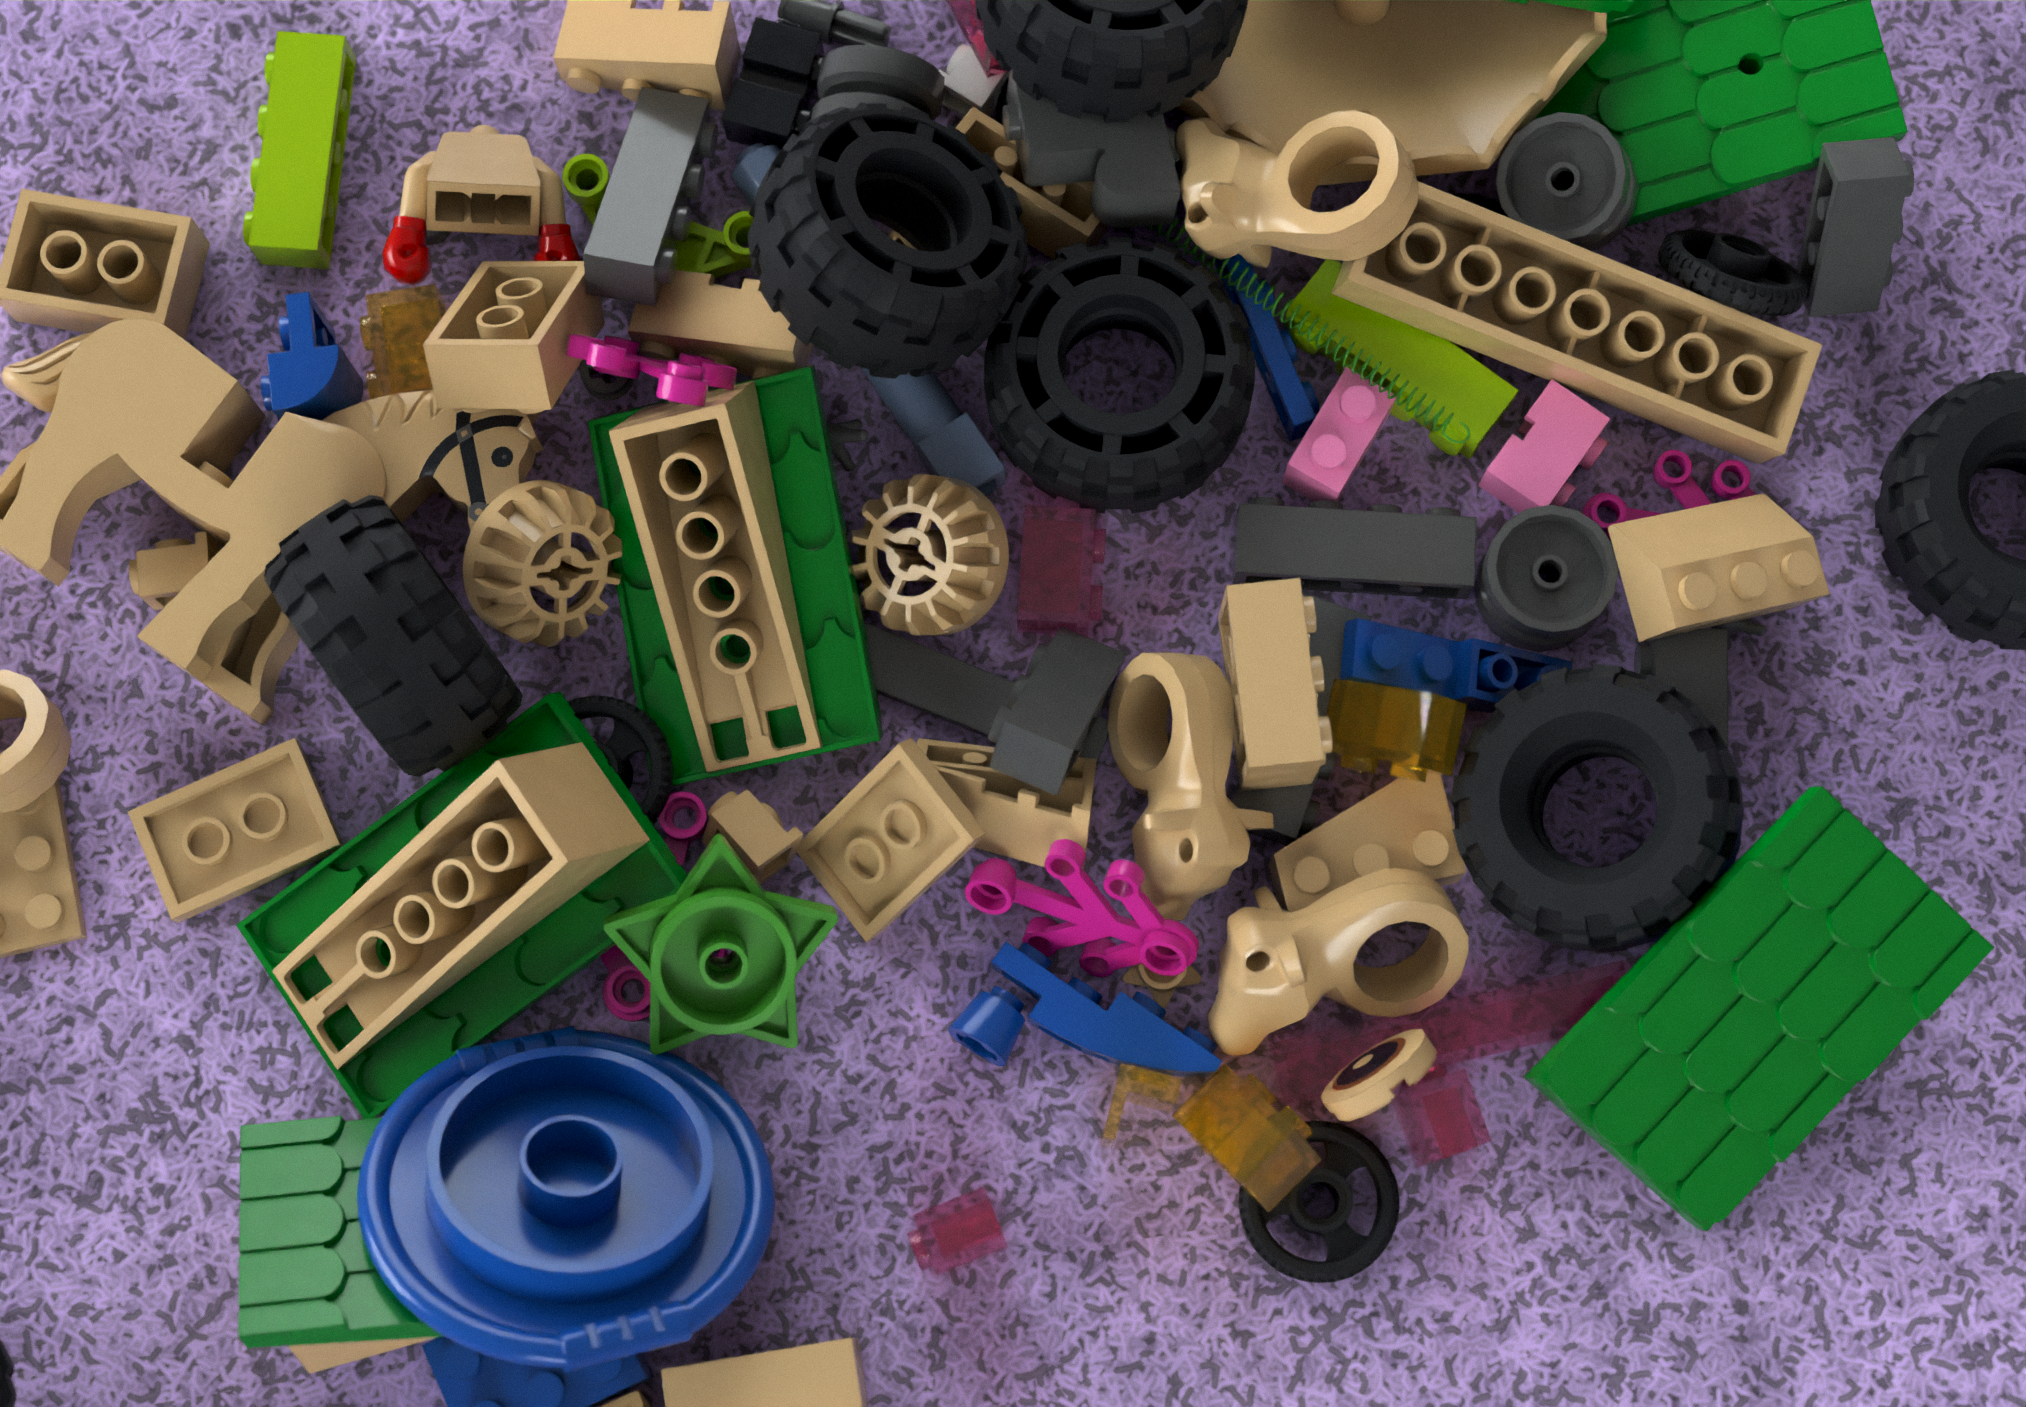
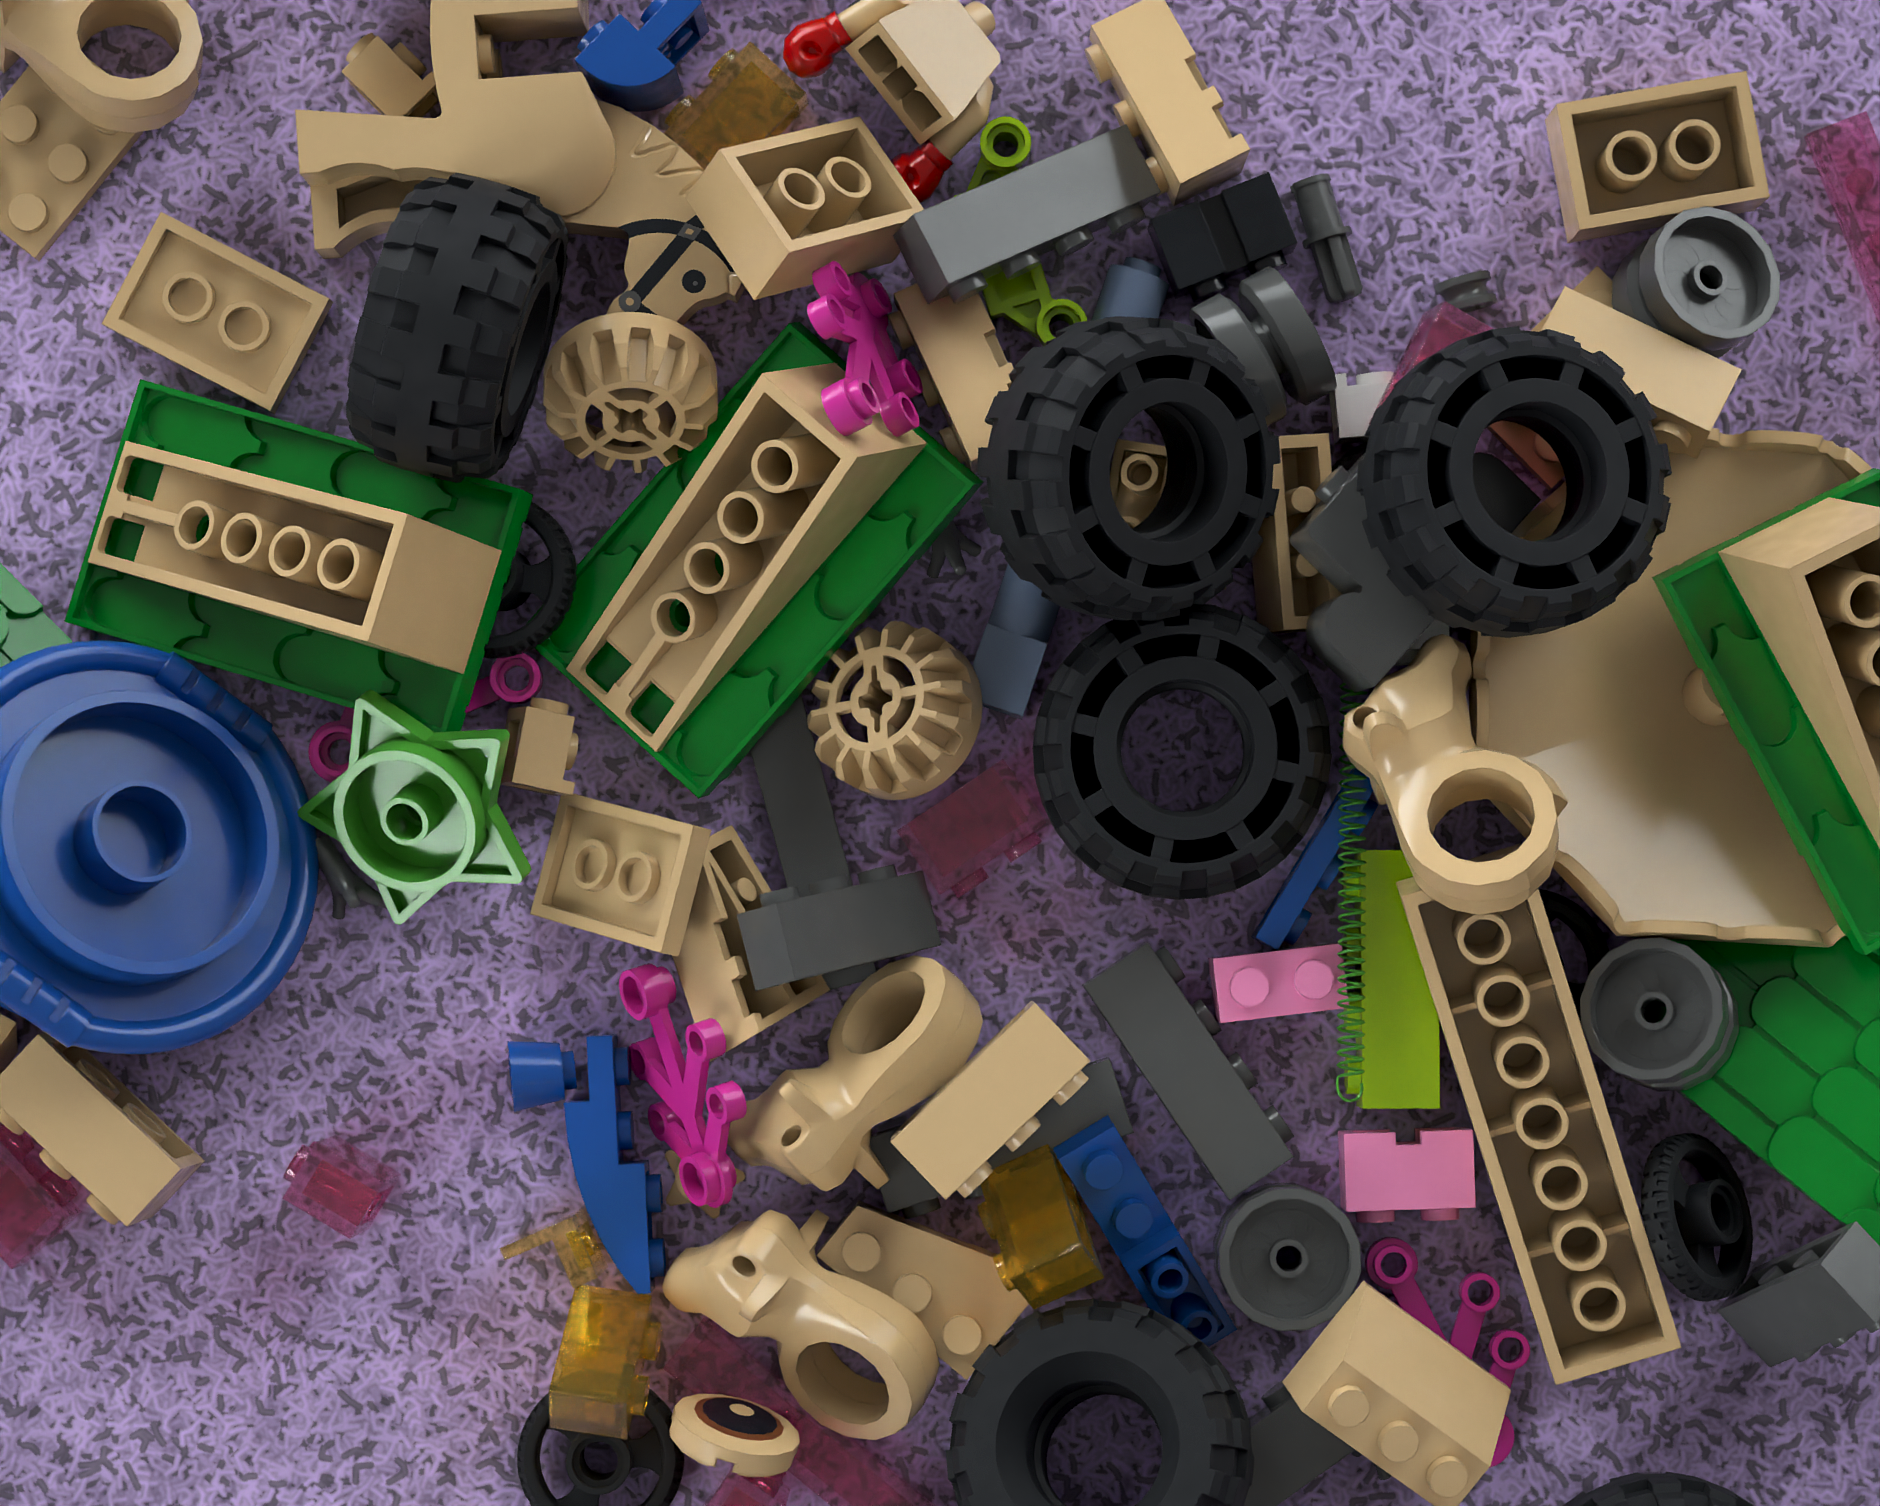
camera: 55 degrees right, 10 degrees up
(731, 1063) = (344, 883): none -> dark grey bar

